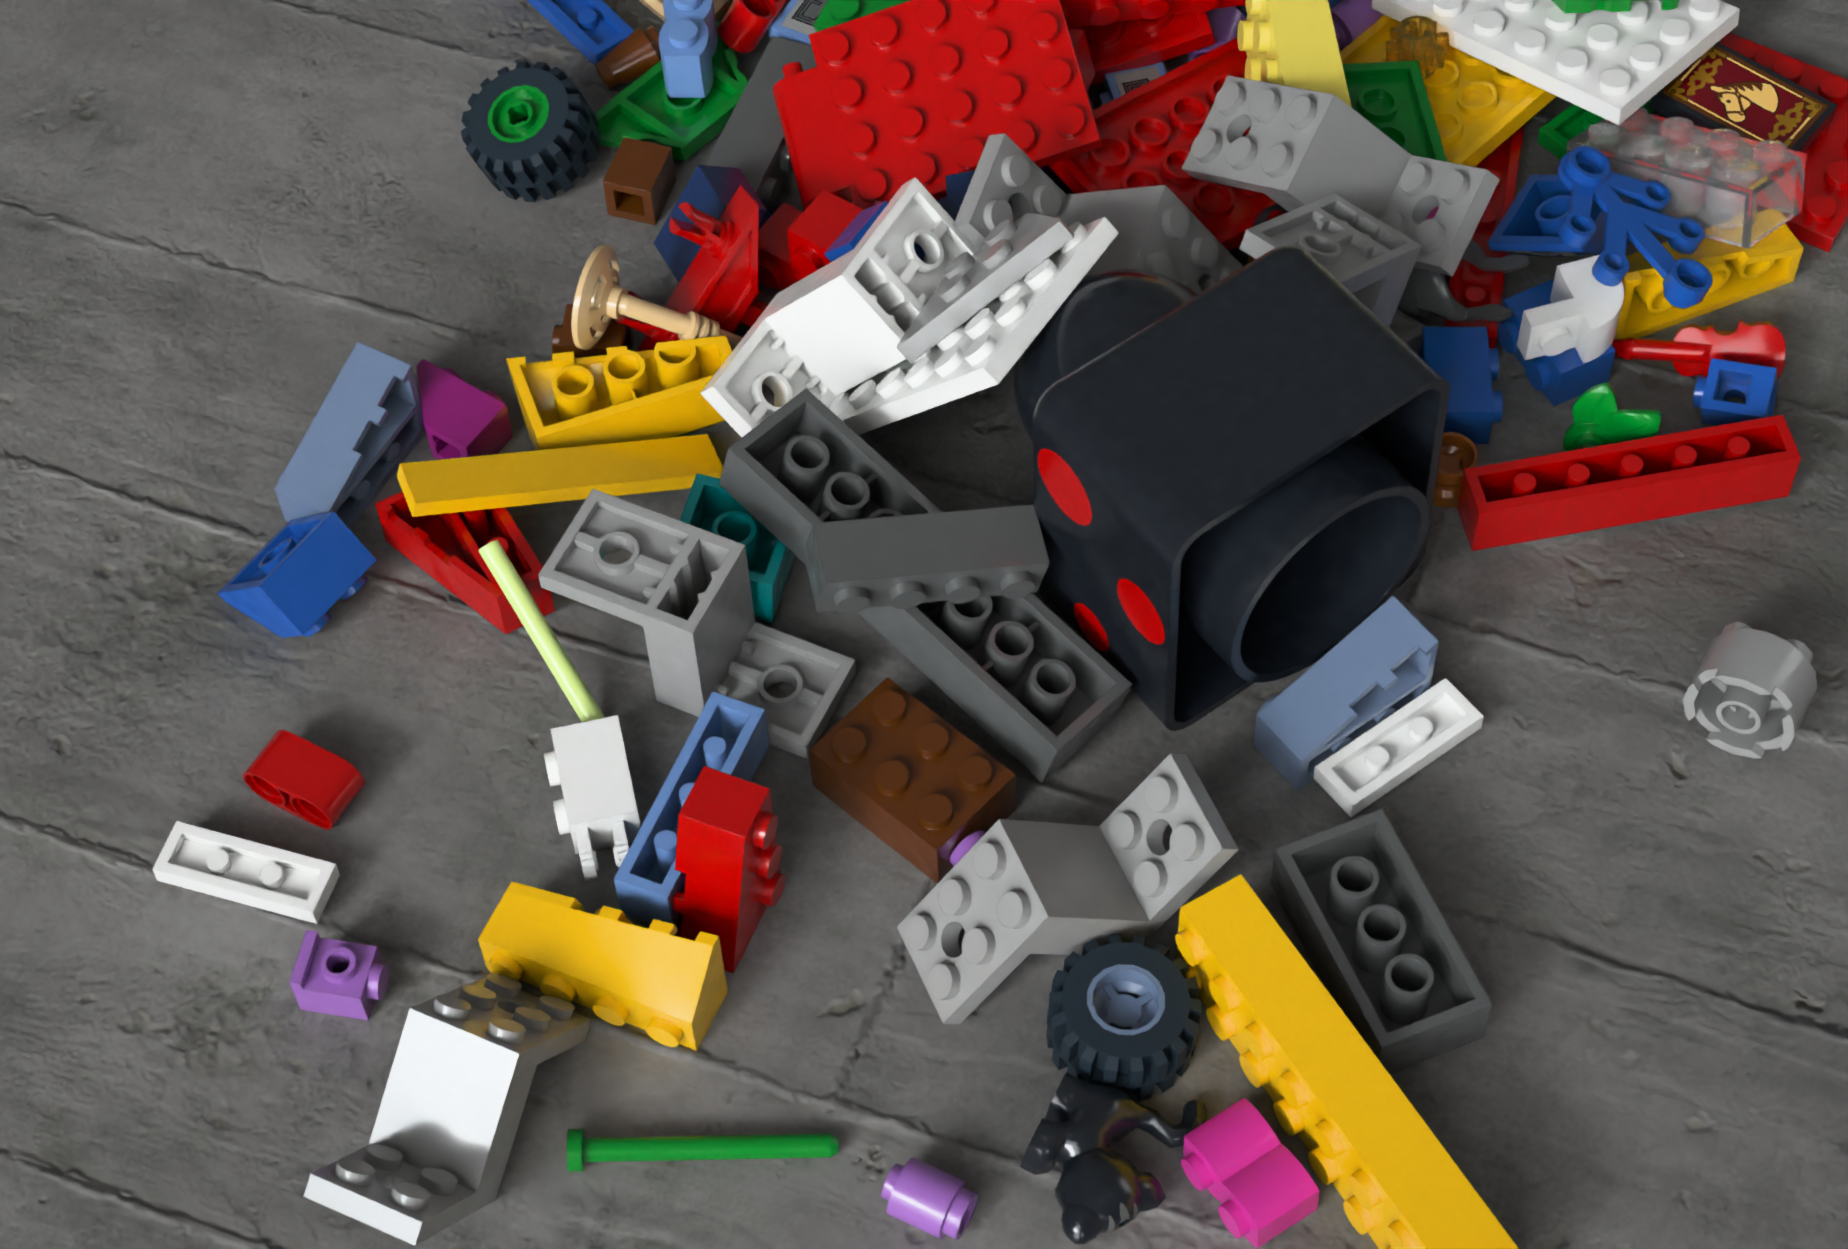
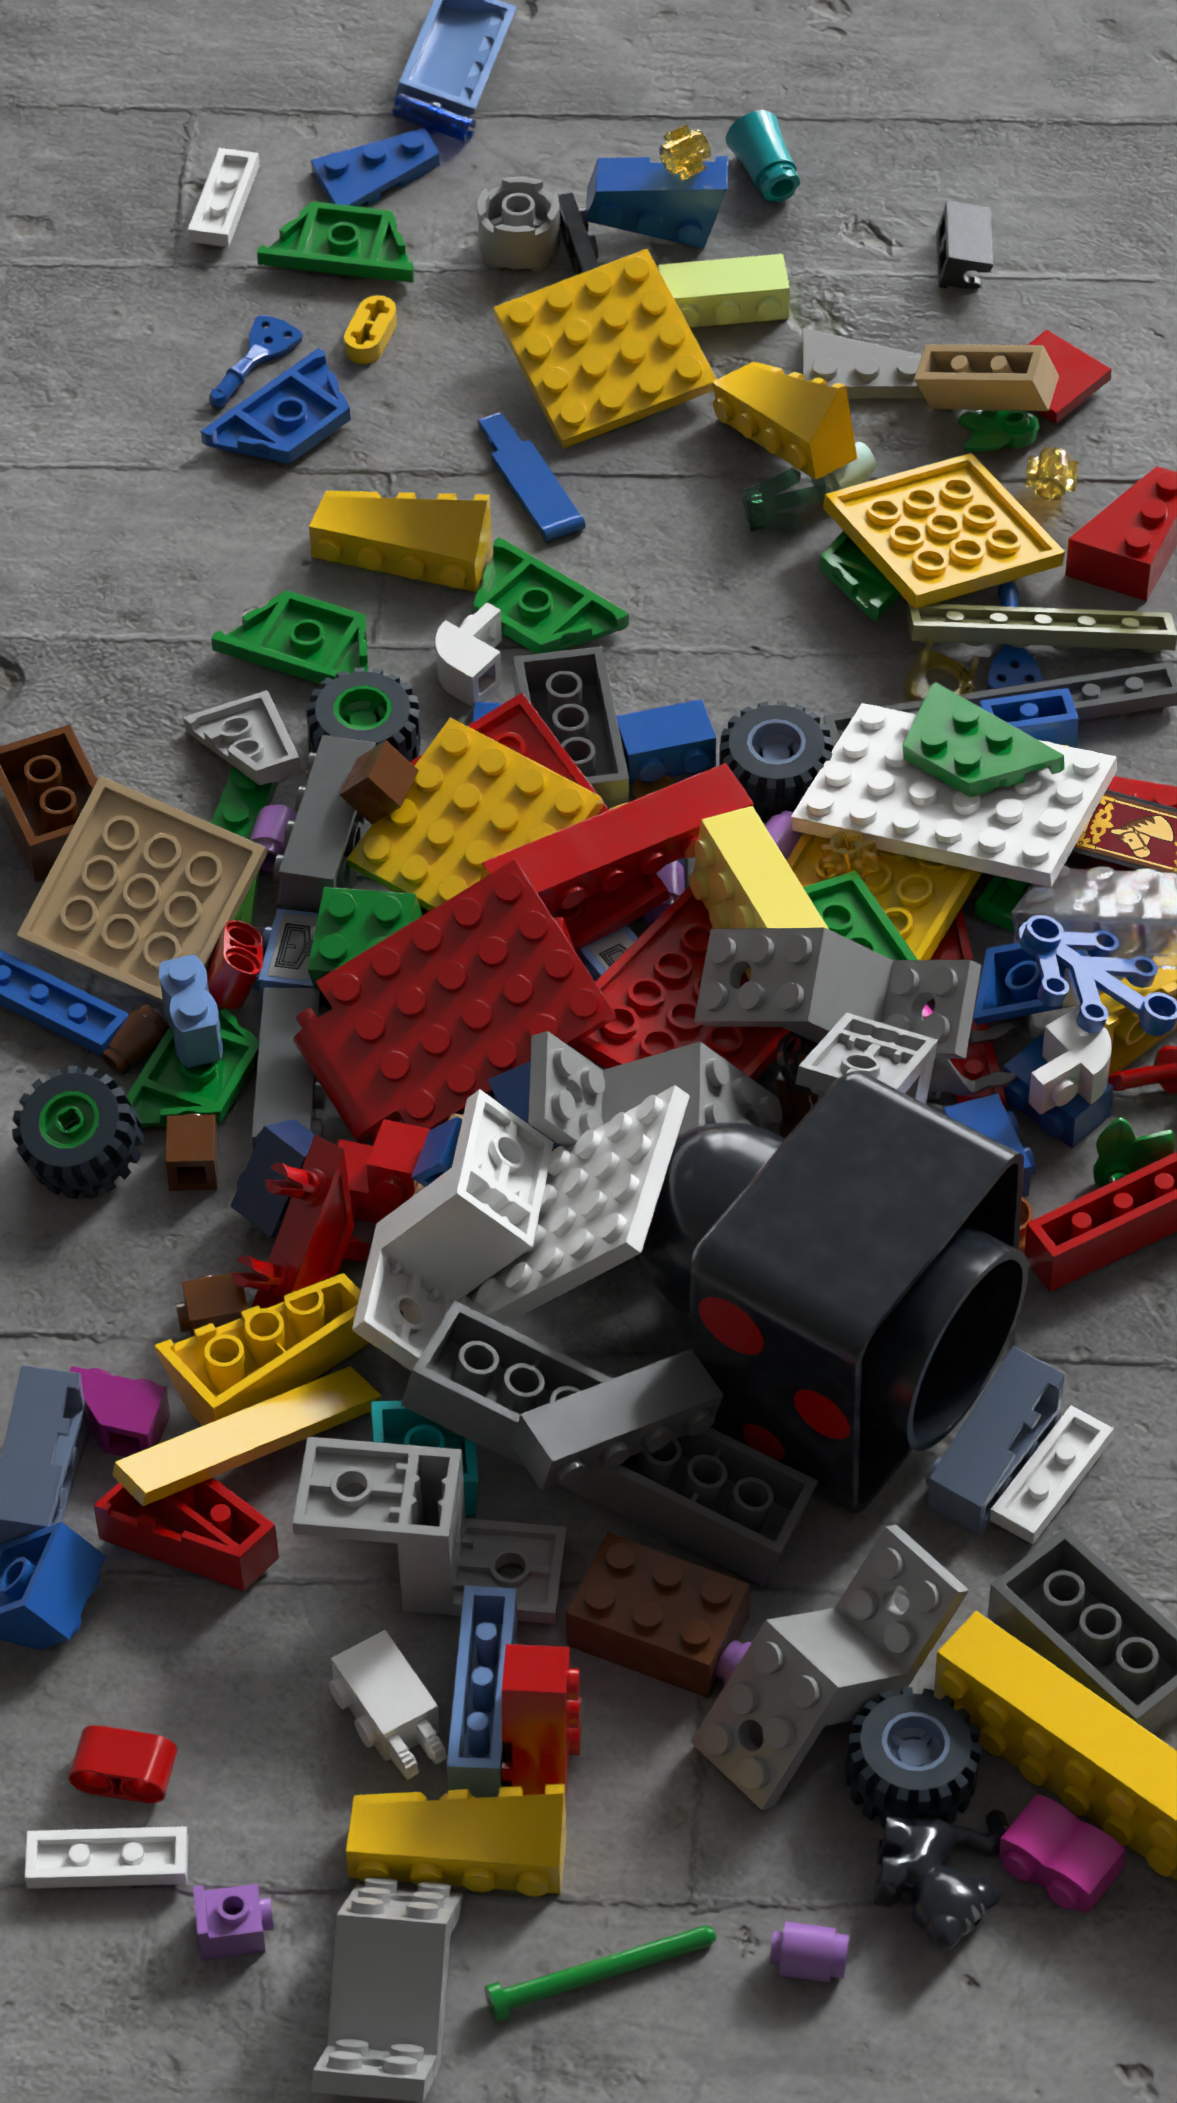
camera: 20 degrees left, 5 degrees down
(540, 632) = (289, 1578): yellowish green bar -> none
(611, 301) = (236, 1269): tan dish -> none
(980, 278) = (577, 1161): light grey wing -> none

